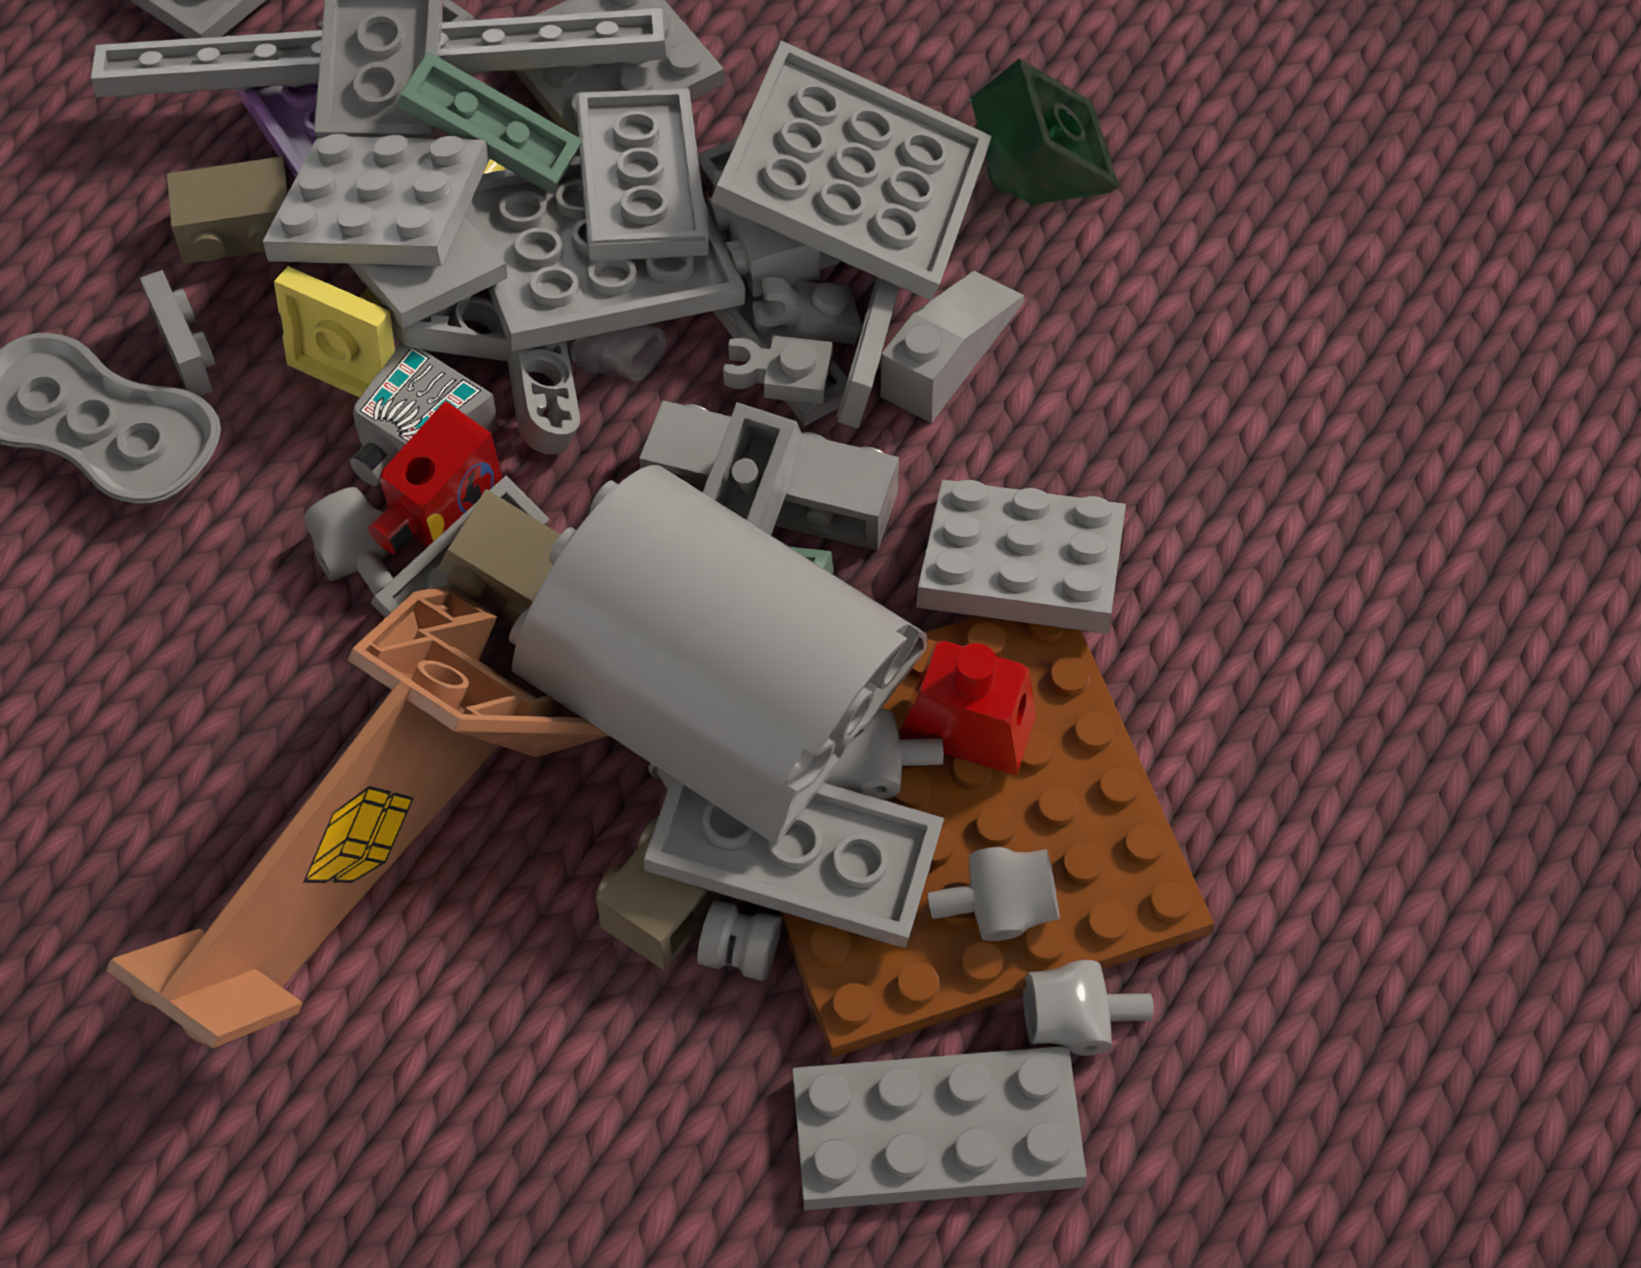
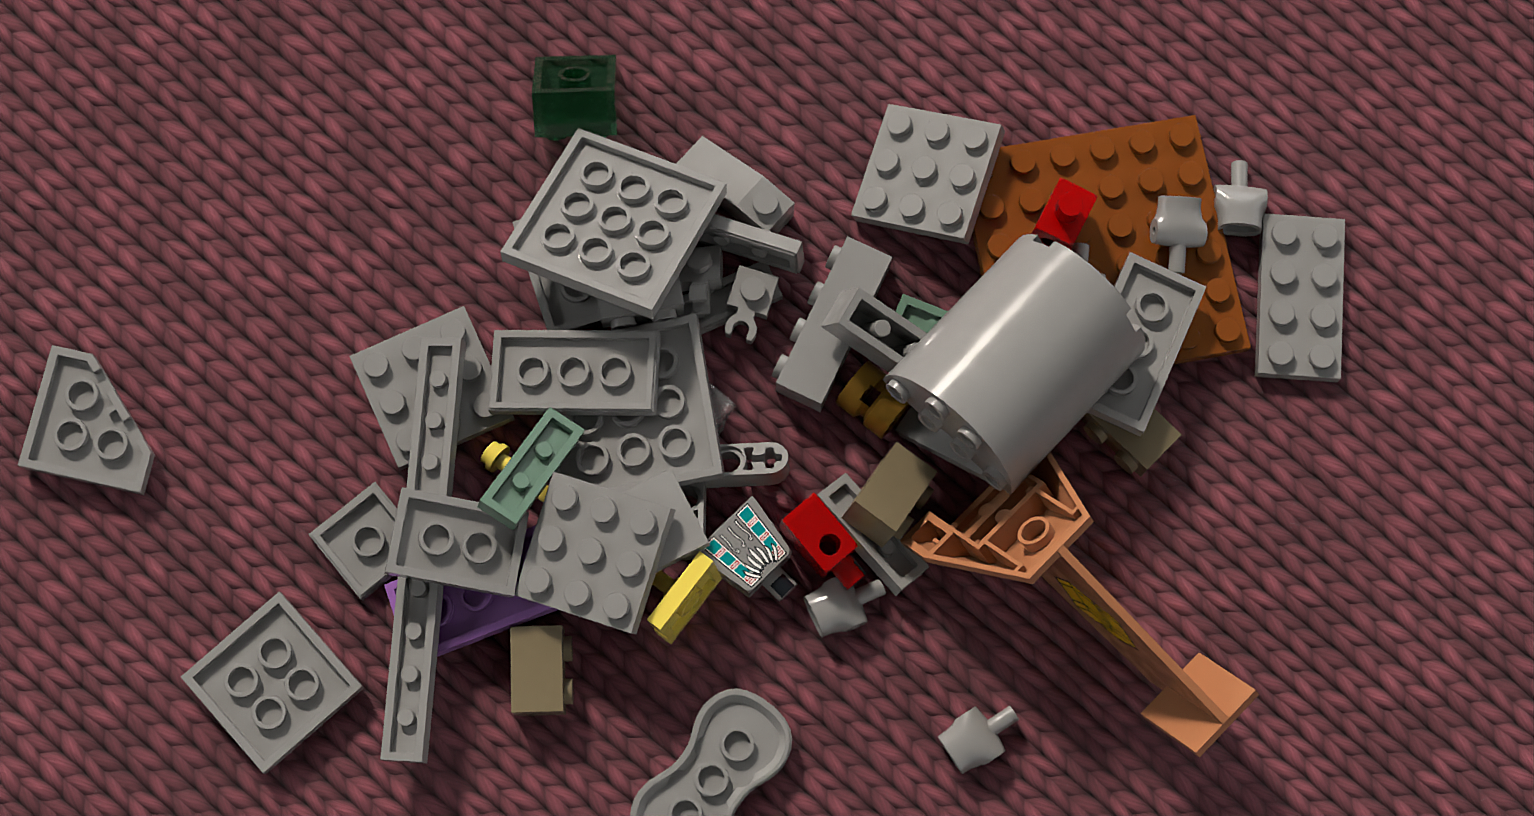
camera: 85 degrees left, 20 degrees up
(163, 734) = (975, 739): none -> light grey piece
(172, 316) = (627, 719): light grey plate -> none
(739, 940) = (1176, 391): light grey wheel -> none

